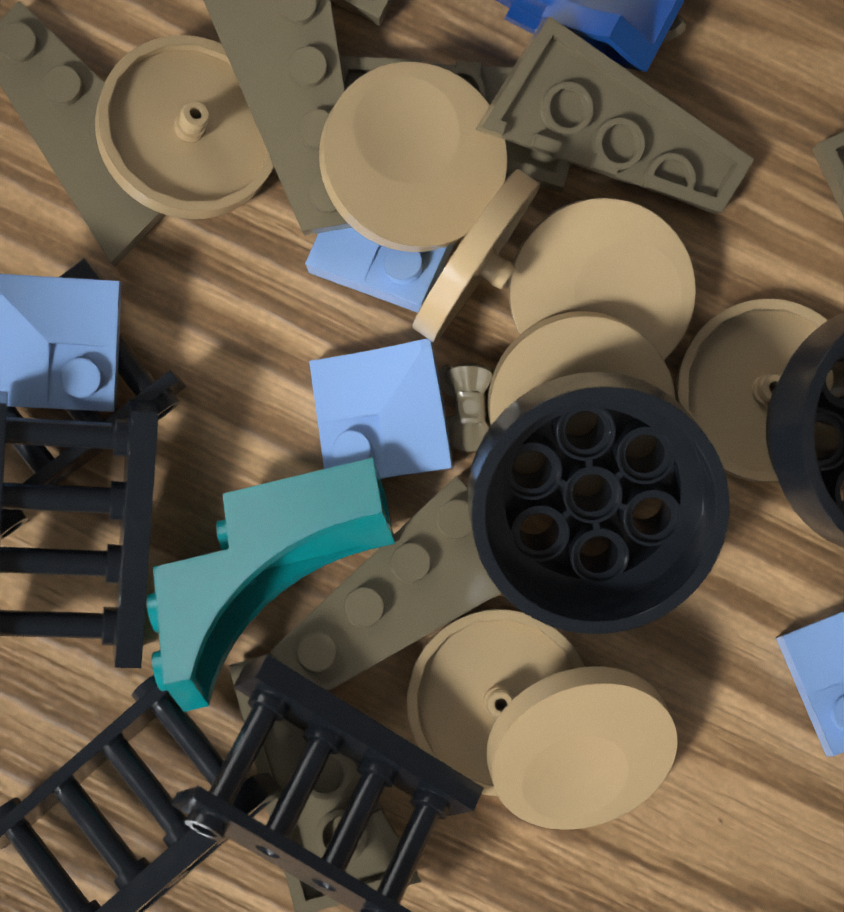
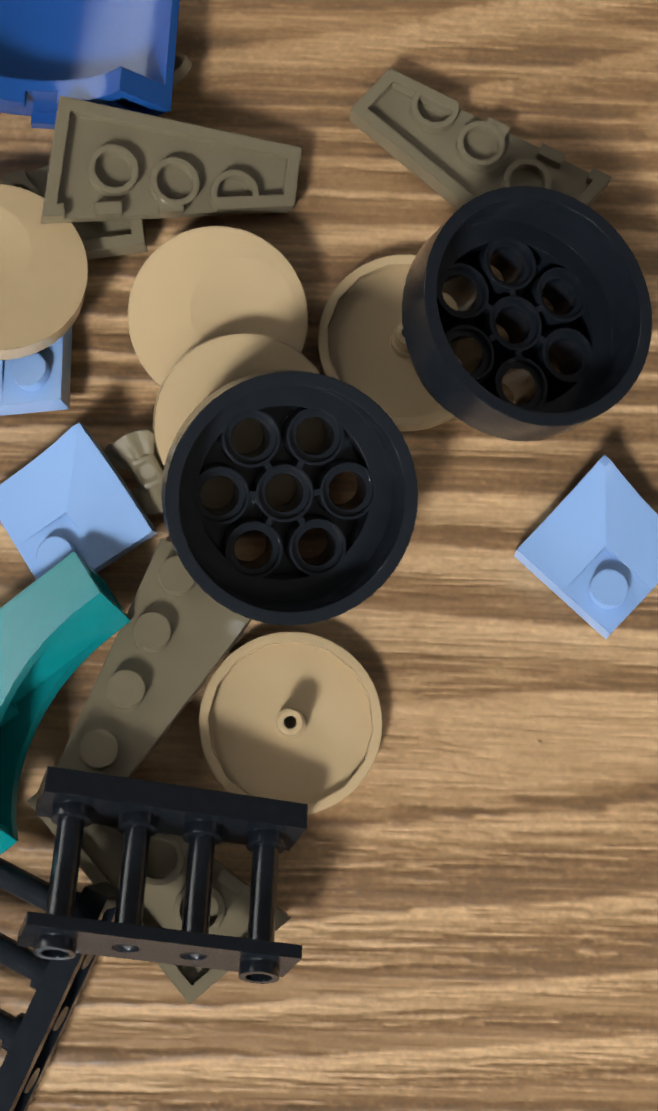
camera: 20 degrees left, 5 degrees down
(477, 256) = (86, 329): tan piece -> none
(581, 748) = (378, 727): tan piece -> none

